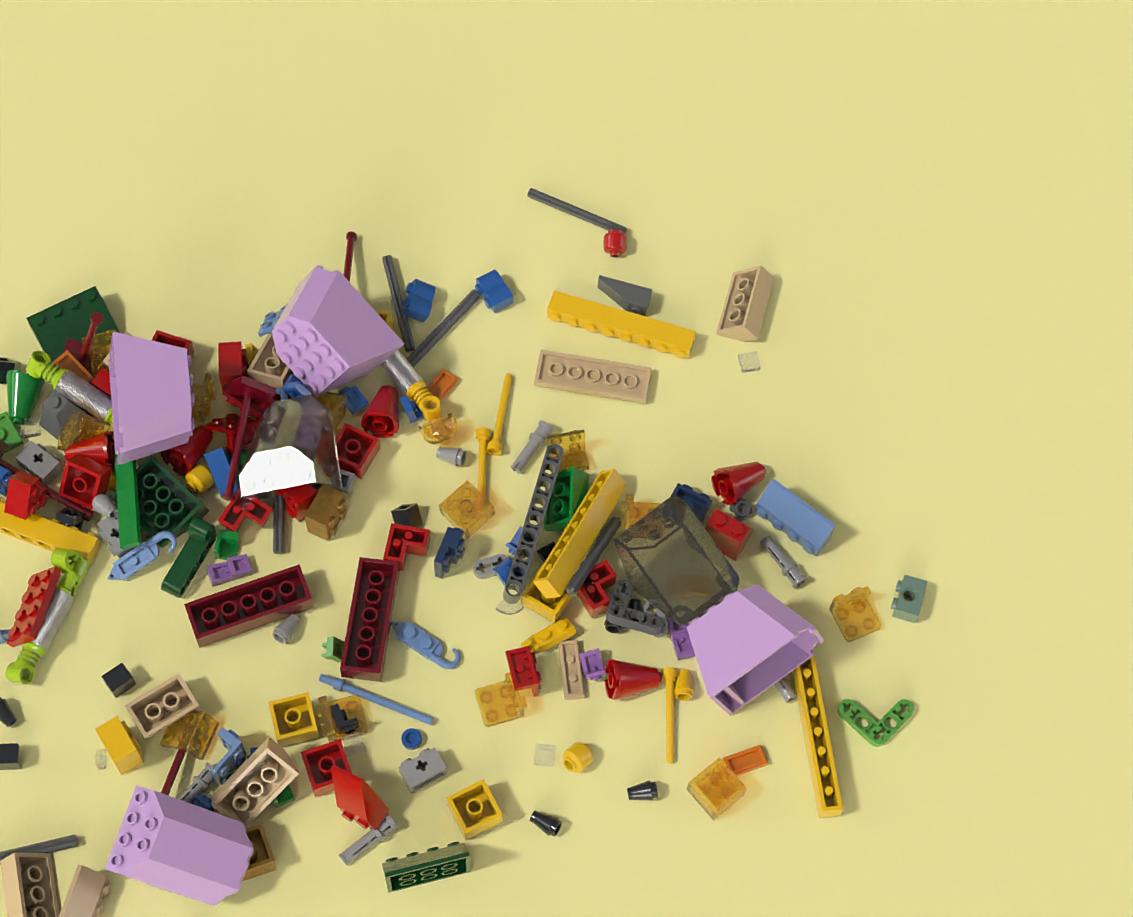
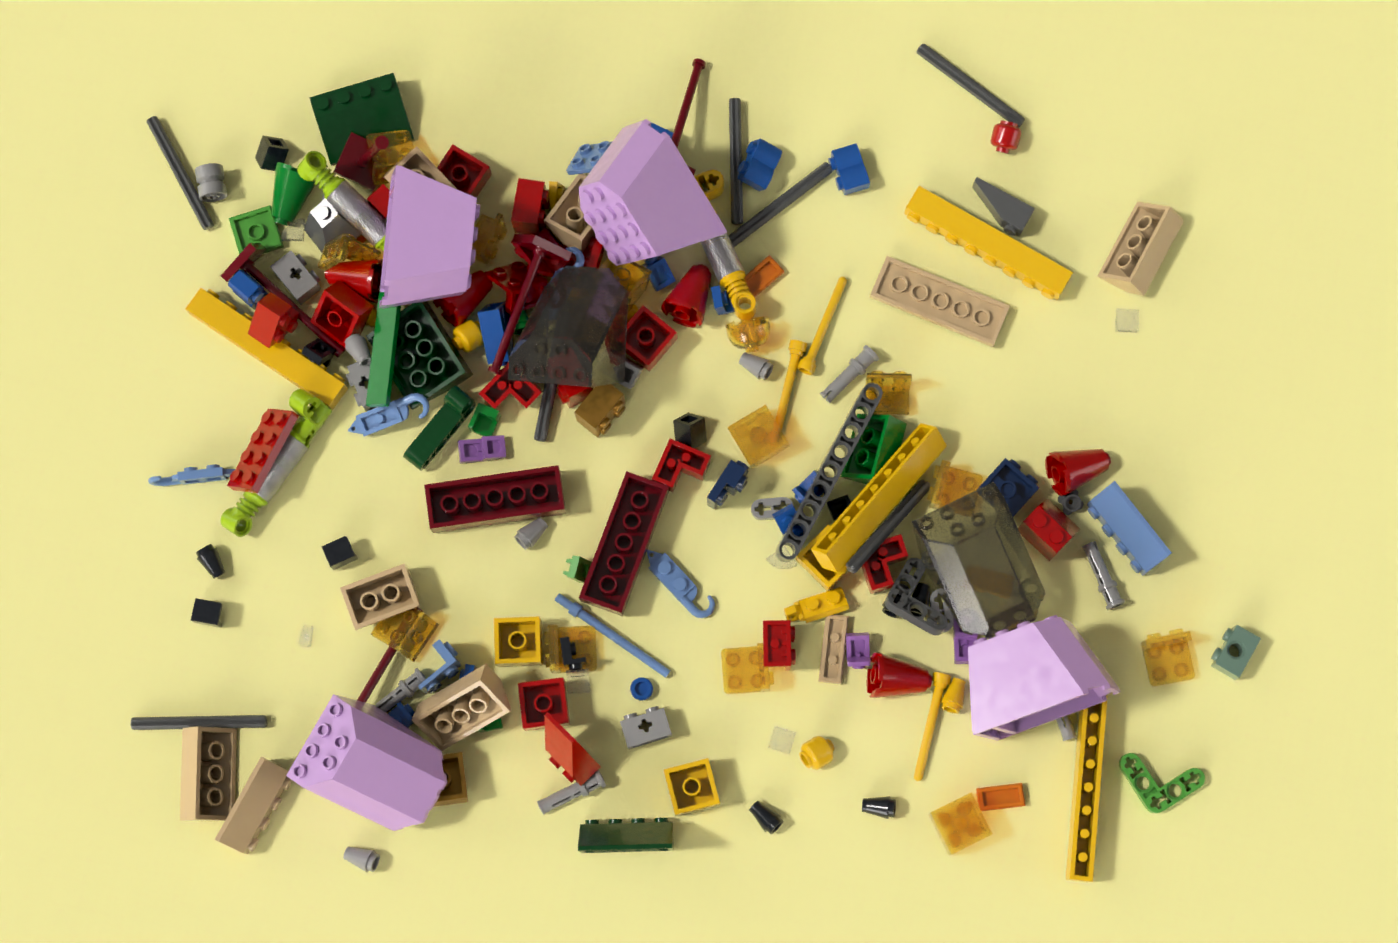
camera: 20 degrees right, 15 degrees up
(69, 362) = (351, 171): orange tile -> none
(120, 744) = (327, 629): yellow brick -> none
(295, 387) = (595, 253): blue bracket -> none

